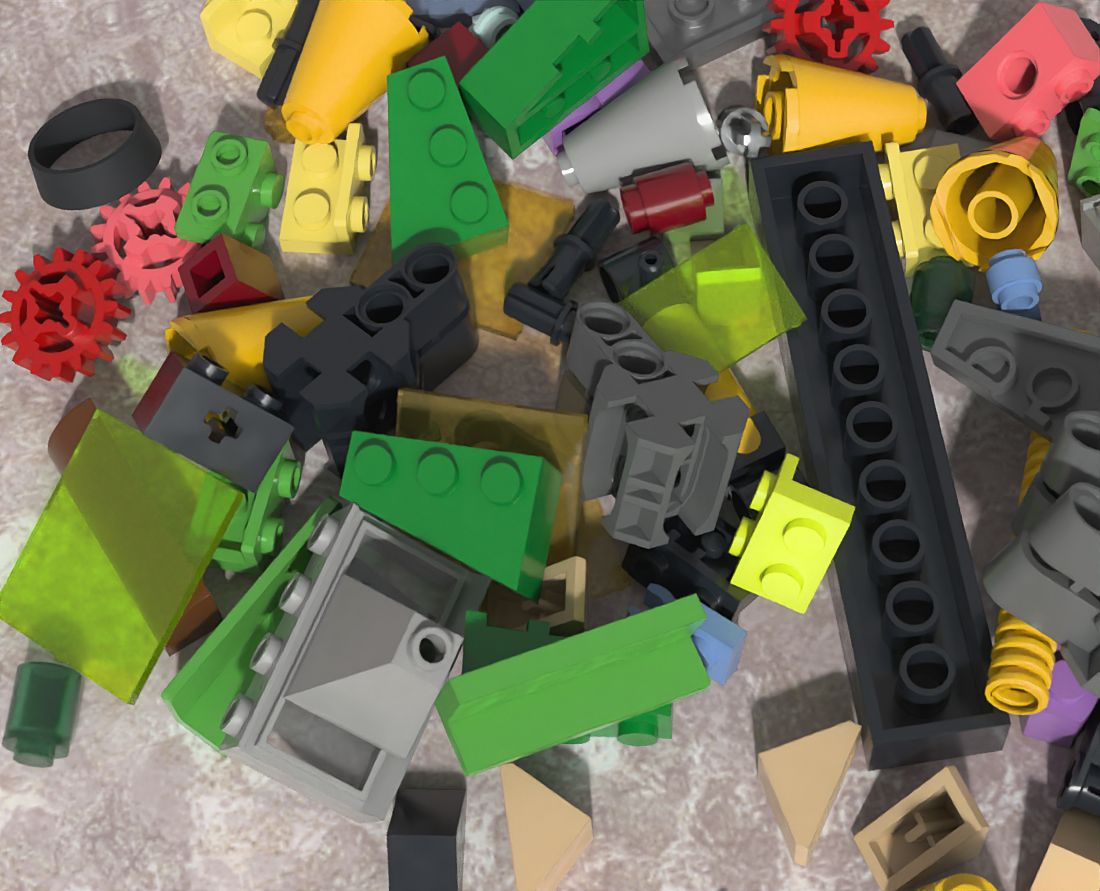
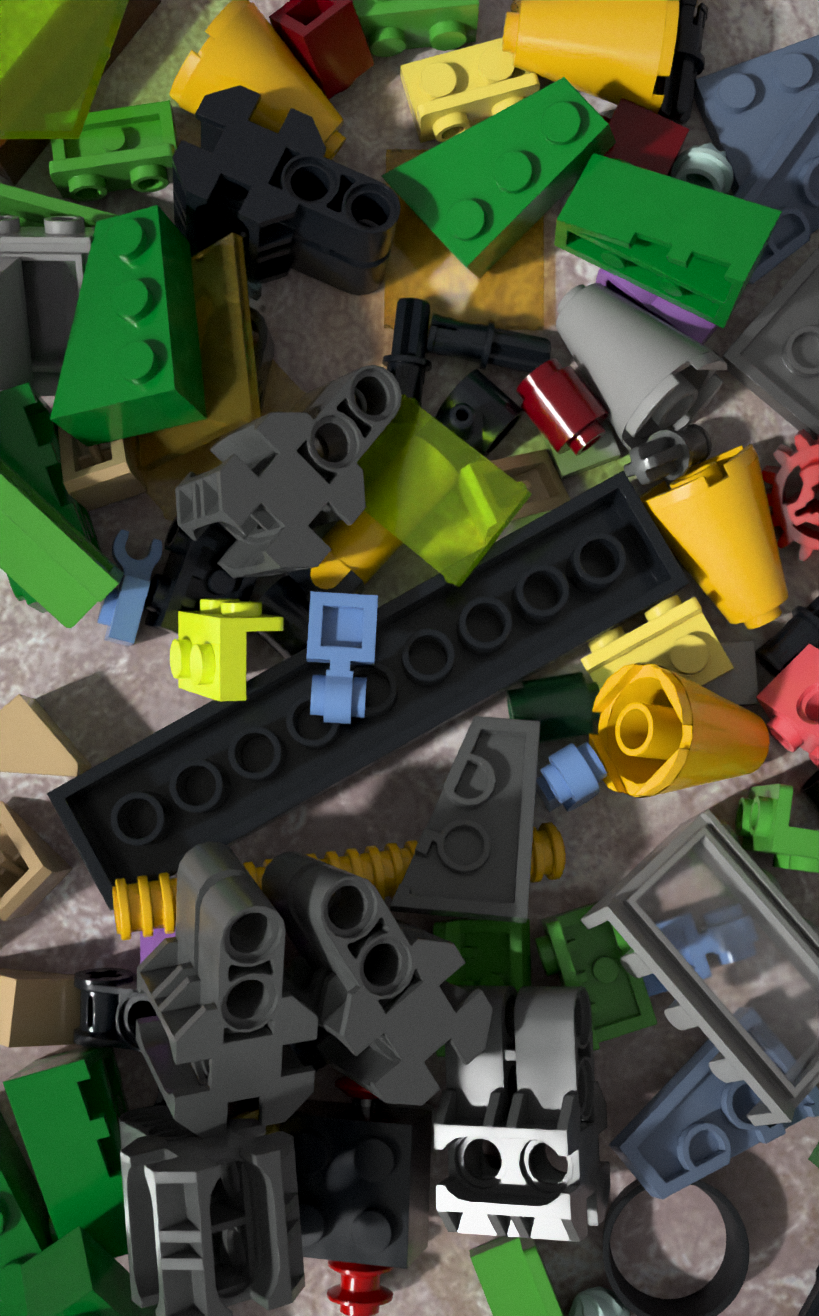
camera: 60 degrees right, 20 degrees up
(234, 448) = (142, 76): black brick -> none
(820, 418) = (340, 634): none -> medium blue plate

